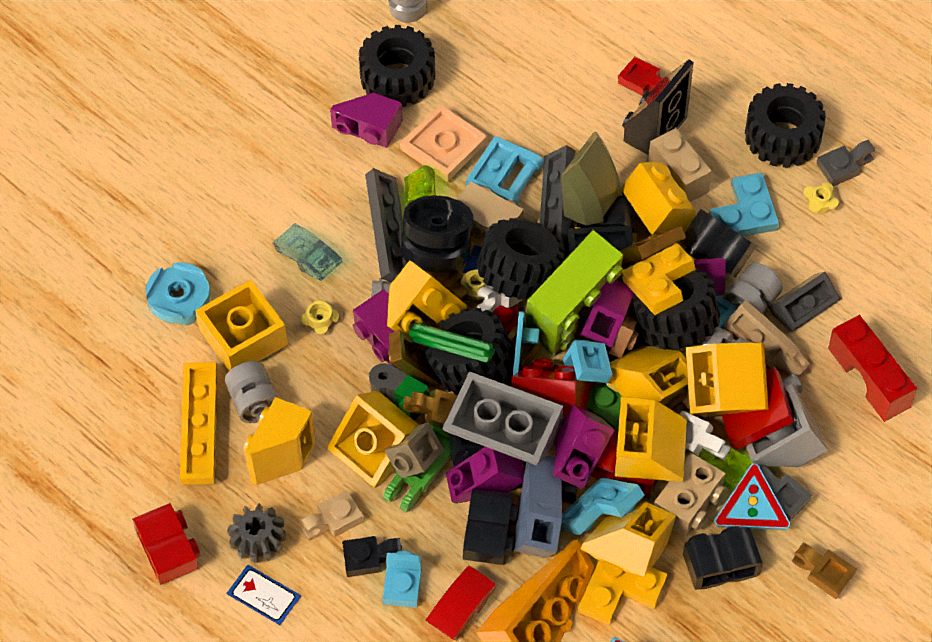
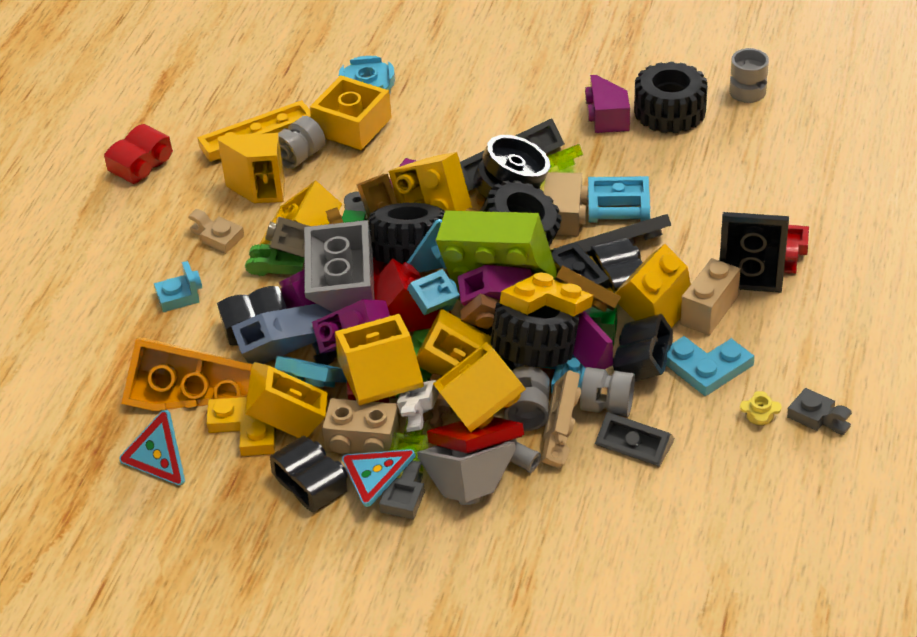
camera: 65 degrees right, 15 degrees down
(244, 533) = (174, 194): dark grey gear -> none
(263, 594) = (128, 226): white sticker -> none
(308, 251) = (453, 125): clear light blue slope -> none
(317, 309) = (396, 153): light yellow plate -> none
(364, 555) = (197, 260): black plate -> none
(444, 142) = (619, 154): light nougat plate -> none
(452, 342) = (394, 205): green axle -> none
(461, 602) = (178, 327): red slope -> none
(590, 183) = (623, 223): olive slope -> none
(789, 106) = (817, 347): black tyre -> none
(827, 571) = (339, 554): pearl gold plate -> none
(886, 383) = (570, 520): red arch -> none

